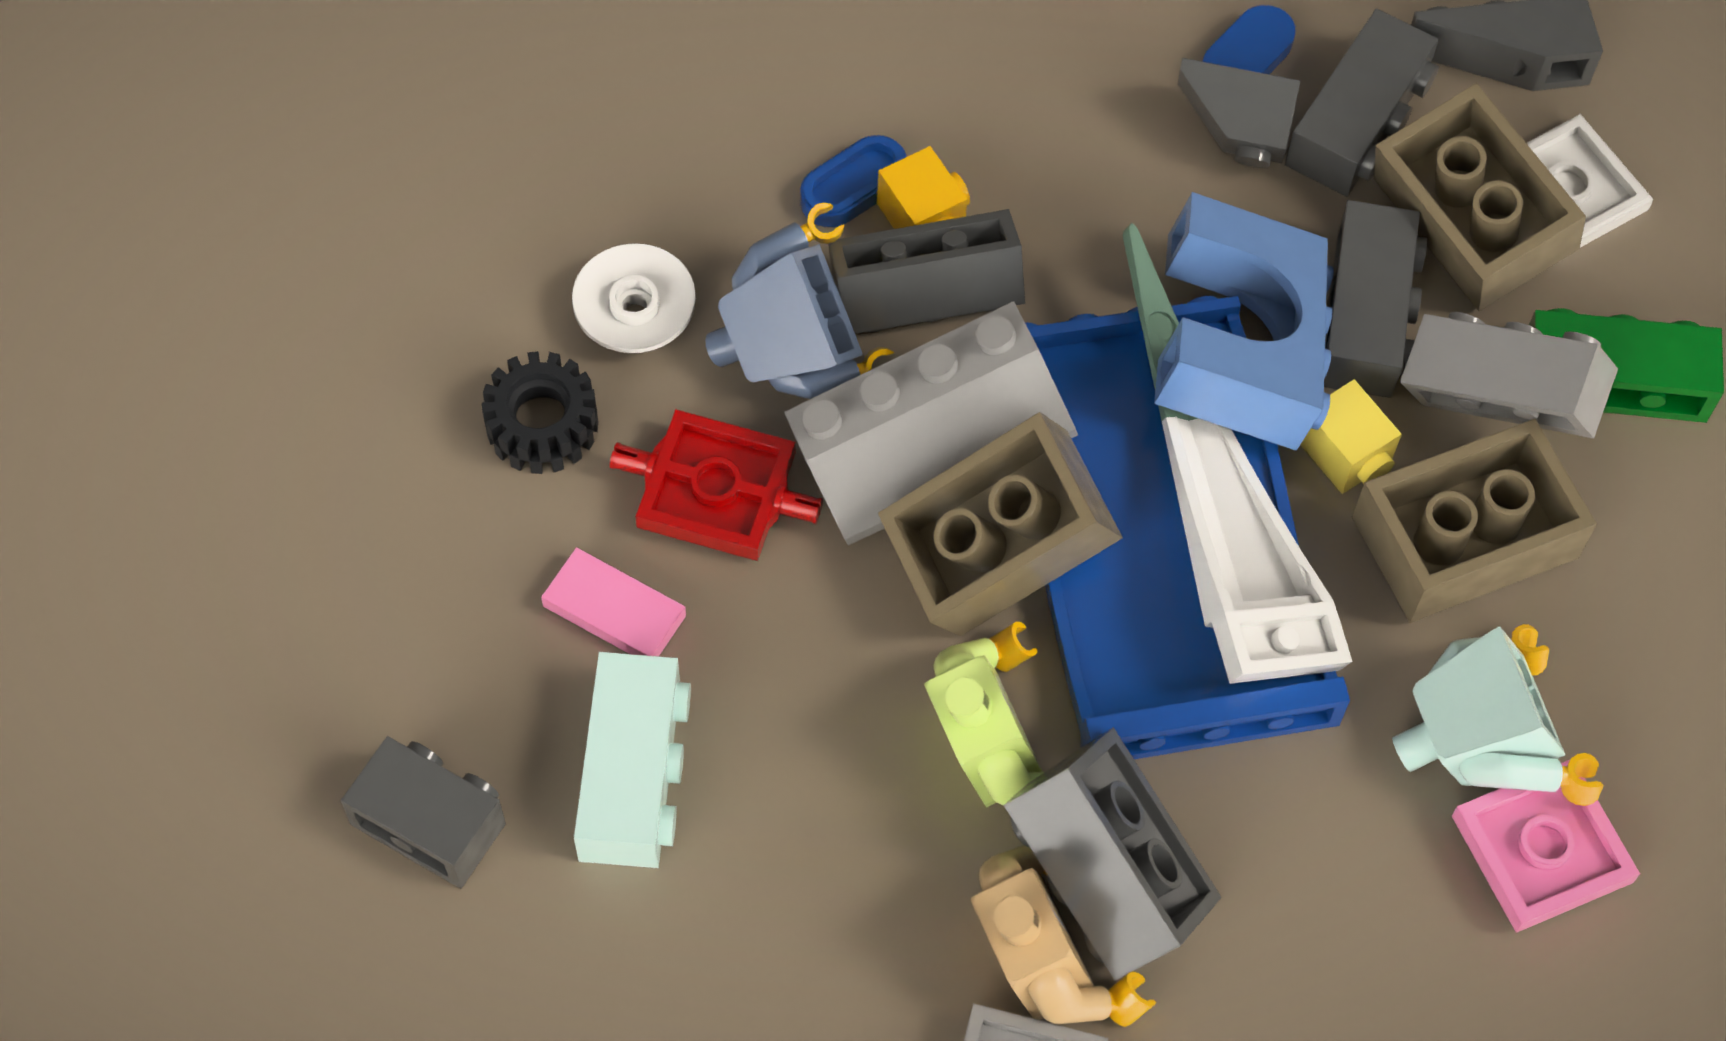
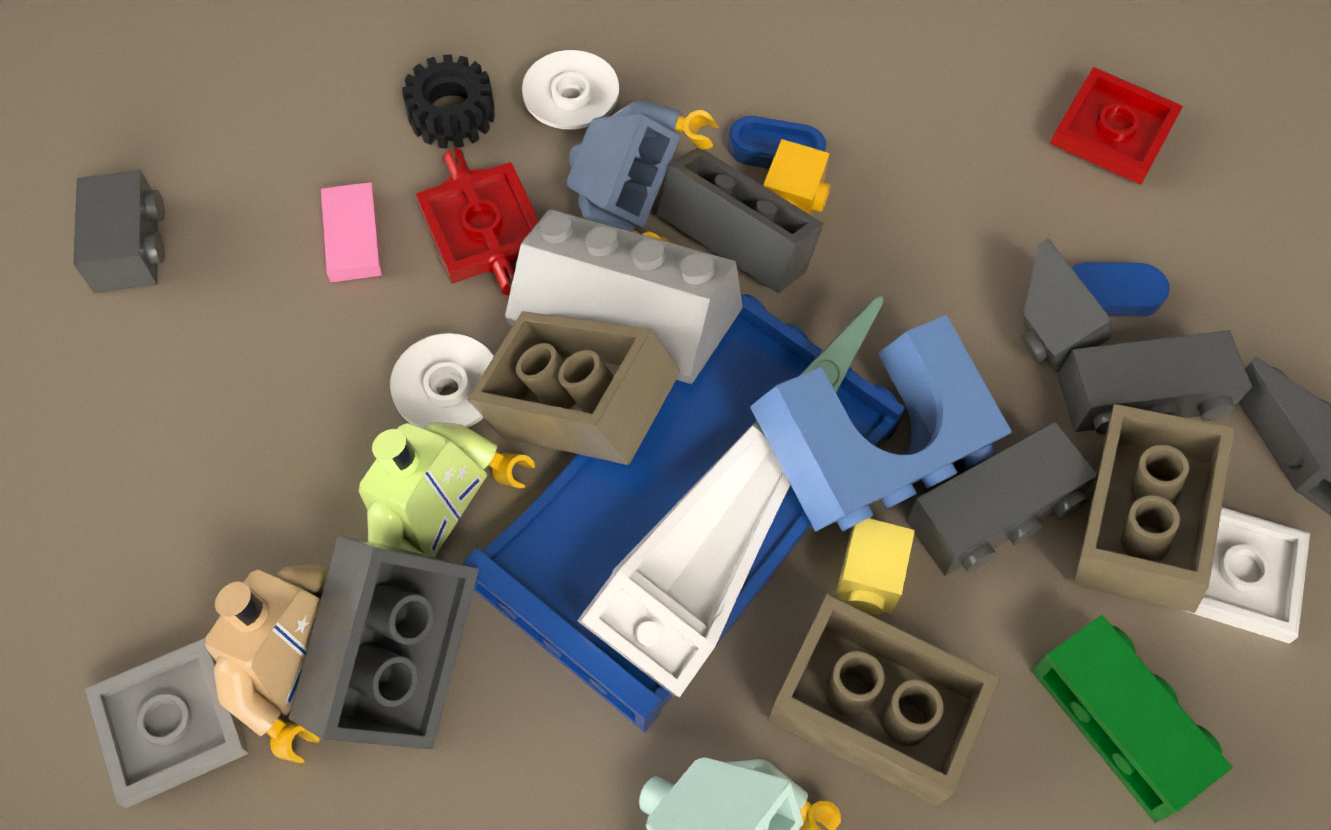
camera: 50 degrees right, 0 degrees up
(631, 760) = (238, 310): light aqua brick -> none
(875, 610) = (431, 367): none -> white dish
(1510, 373) = (1027, 636): light grey brick -> none

